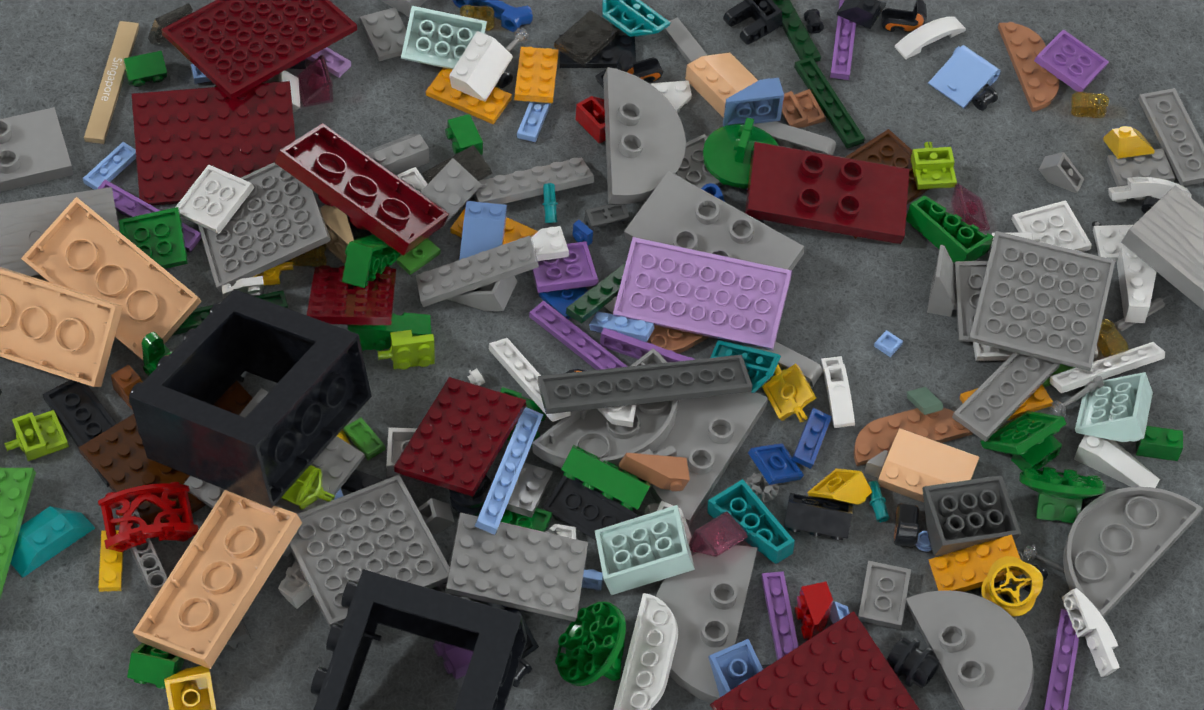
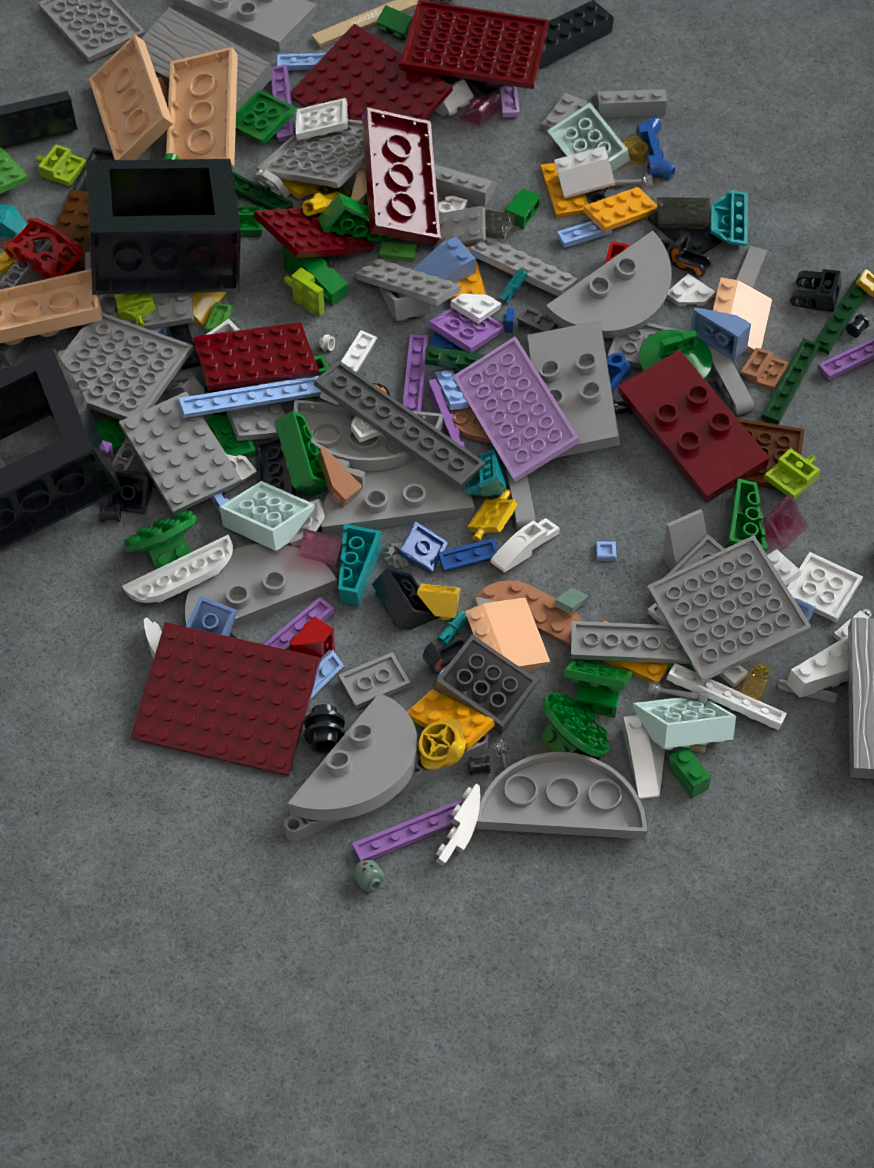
camera: 55 degrees right, 0 degrees up
(324, 267) = (318, 203): none -> yellow piece

